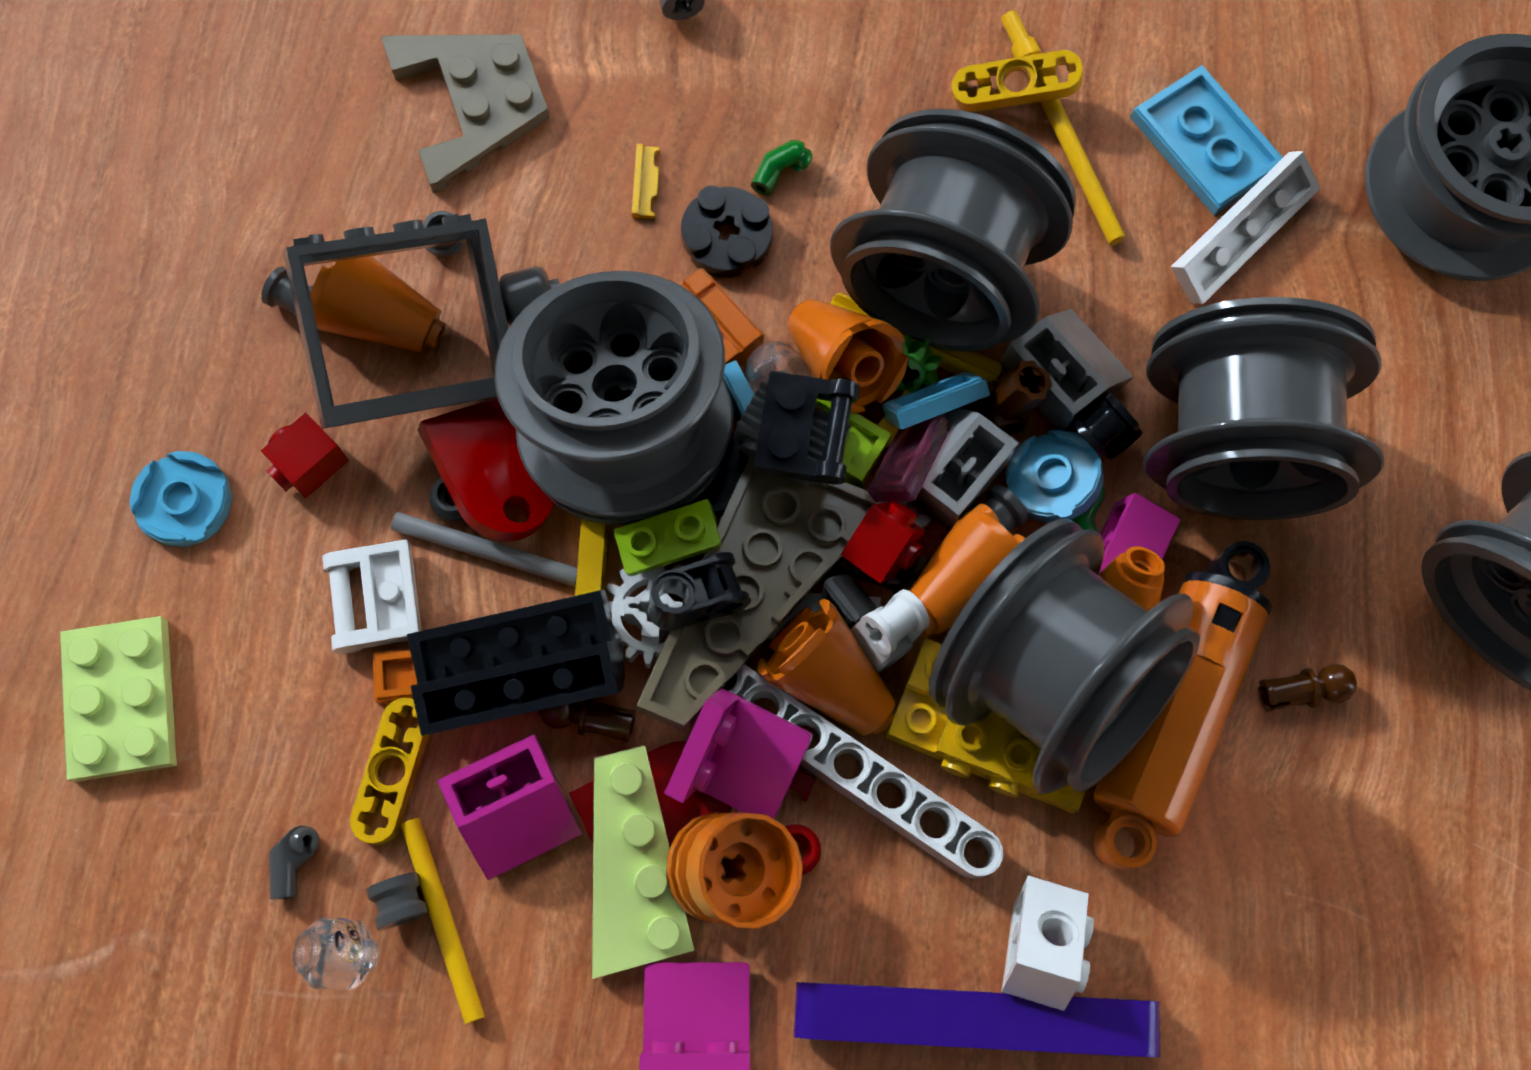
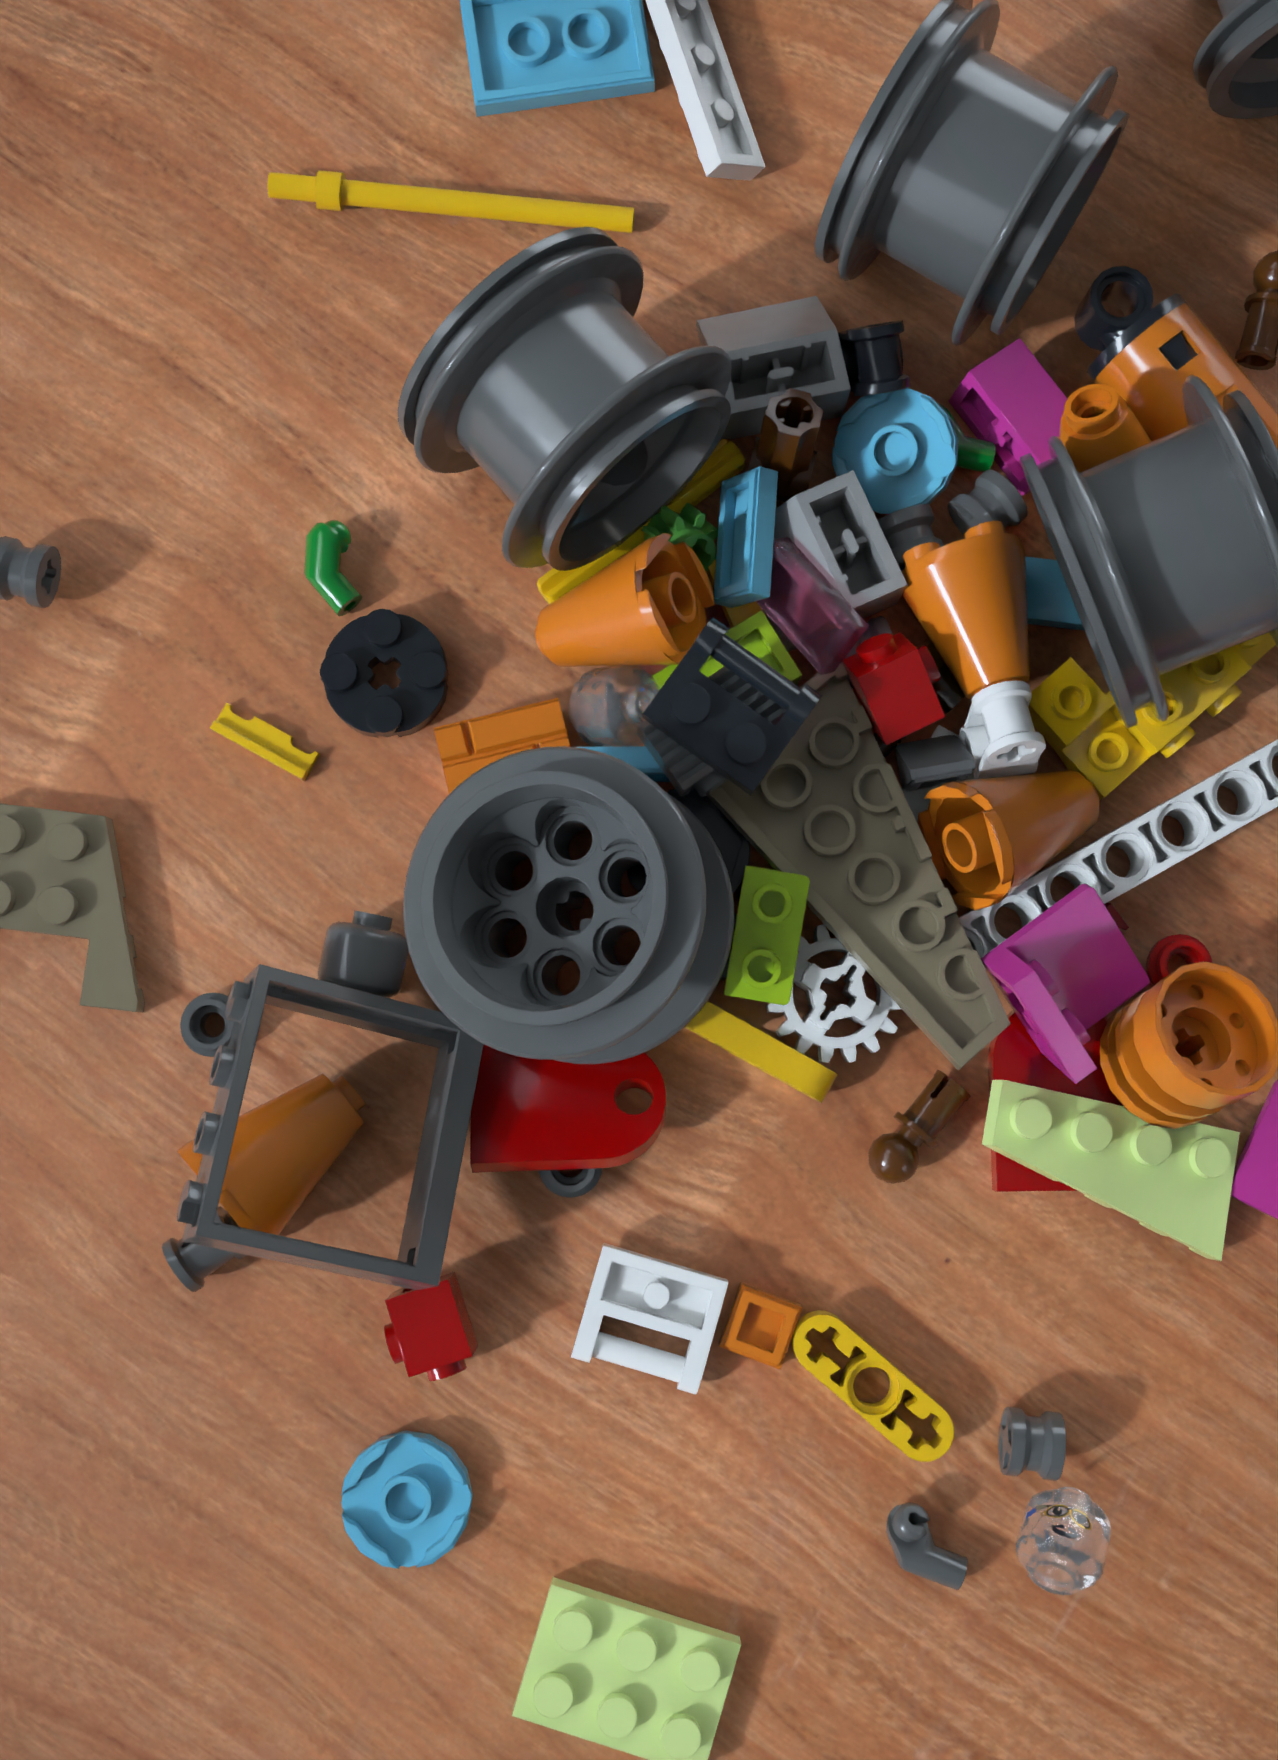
camera: 60 degrees left, 10 degrees up
(442, 921) = (1070, 1400): yellow bar -> none
(484, 549) = (641, 1169): light grey bar -> none
(510, 807) = (986, 1266): dark pink slope -> none
(515, 662) = (830, 1184): black brick -> none
(706, 588) = (867, 922): black piece -> none
(1032, 93) = (401, 185): yellow beam -> none

